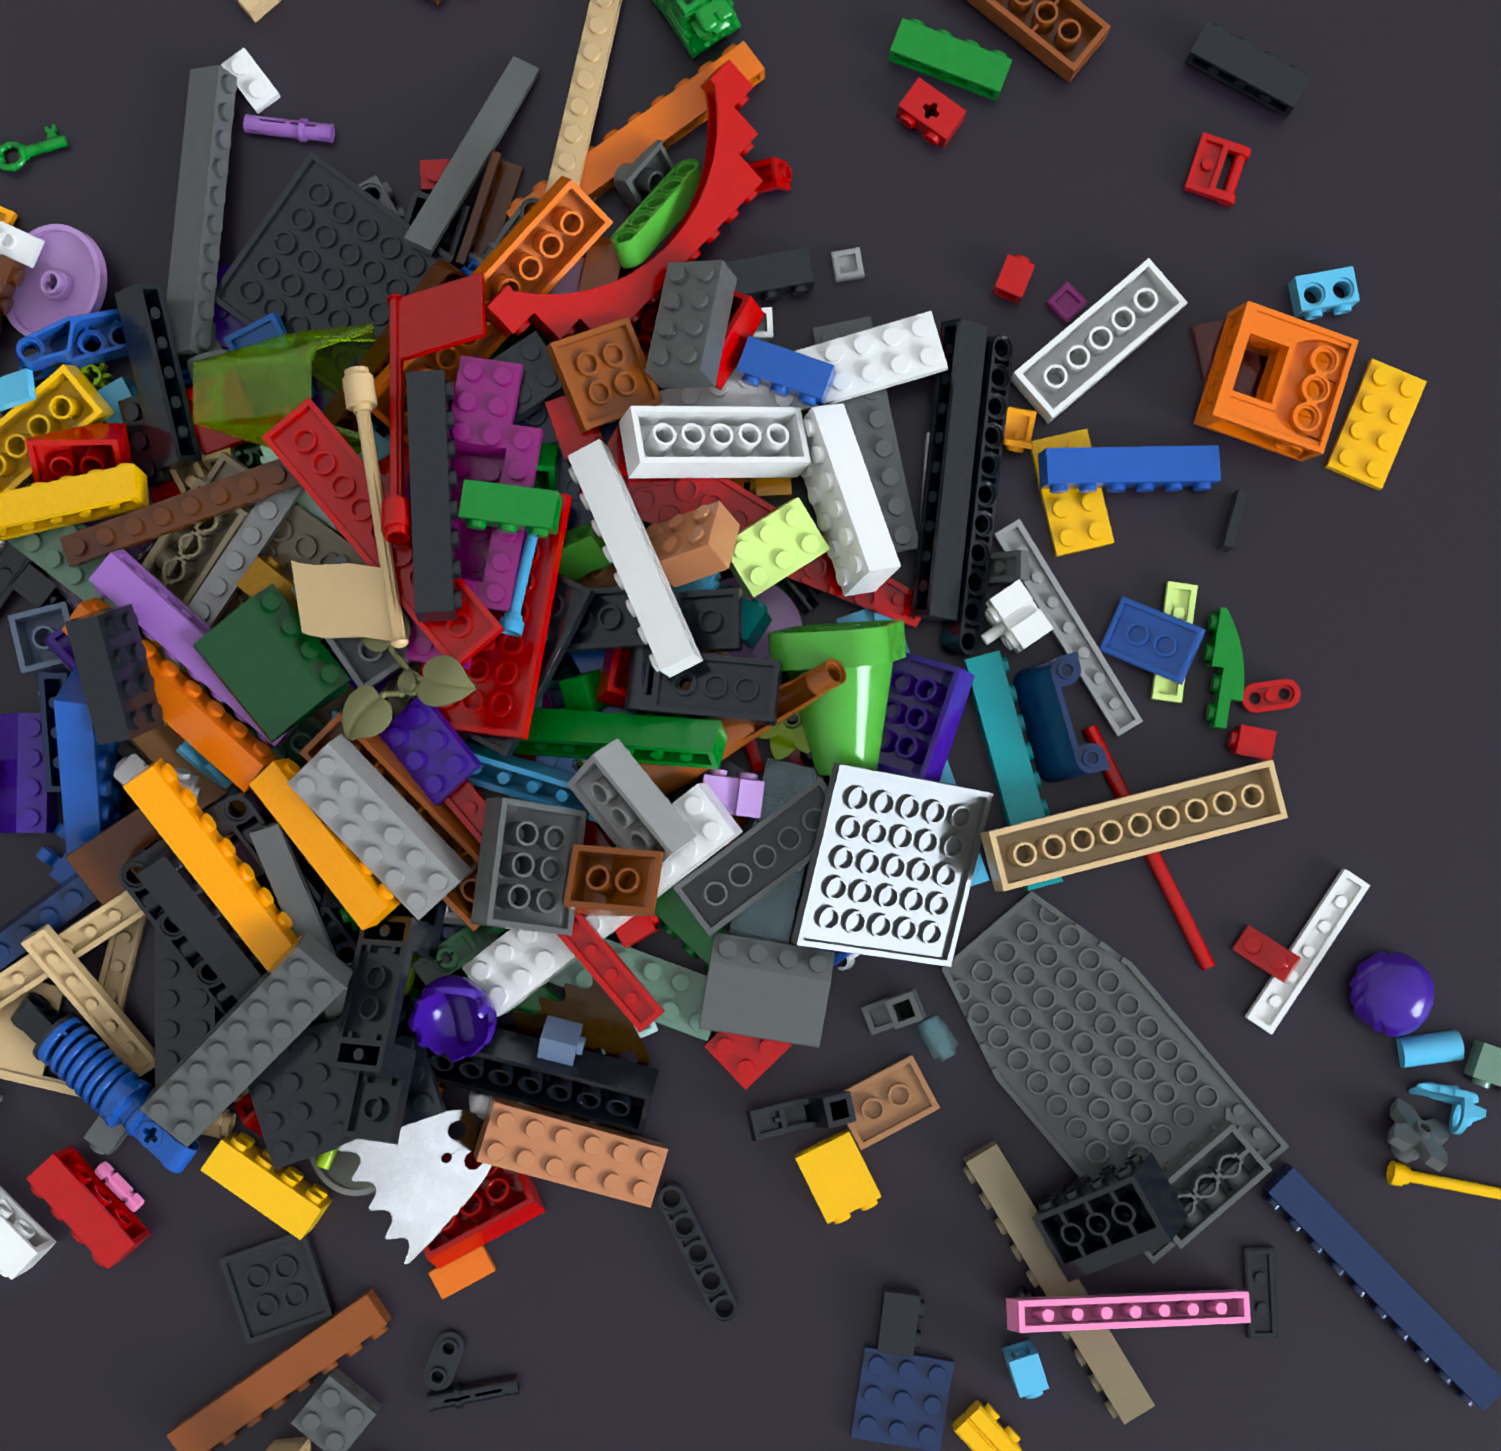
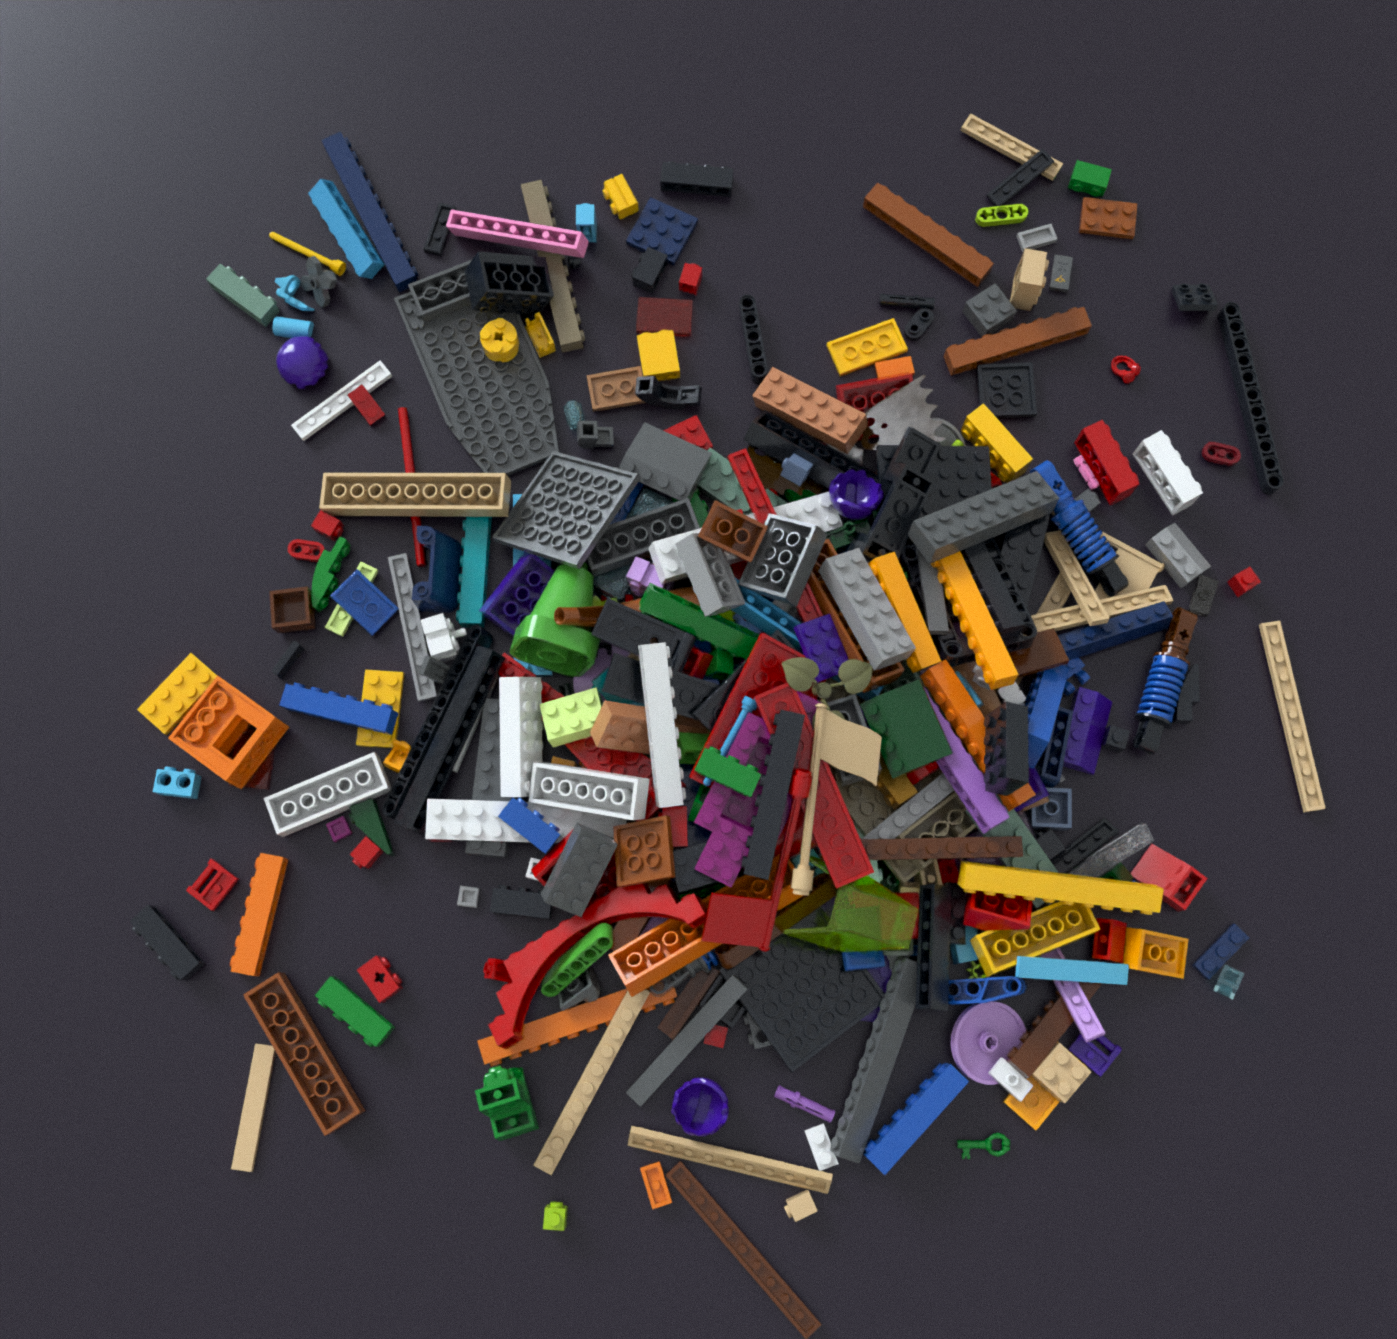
camera: 160 degrees left, 10 degrees down
(94, 1369) = (1127, 376): none -> red piece
(129, 151) = (915, 1117): none -> blue brick
(359, 25) = (730, 1159): none -> tan plate
(427, 74) = (700, 1107): none -> dark purple piece
(515, 1295) = (867, 347): none -> yellow tile
(828, 1327) = (690, 278): none -> red brick
(851, 1250) = (664, 314): none -> clear red tile
(1021, 320) = (369, 820): none -> dark green slope
(1036, 1153) = (540, 336): none -> yellow hinge
(1096, 1136) = (499, 340): none -> yellow brick
(1134, 148) = (259, 914): none -> orange brick
(1255, 594) = (292, 610): none -> reddish brown piece
(1409, 1242) = (346, 229): none -> dark azure brick

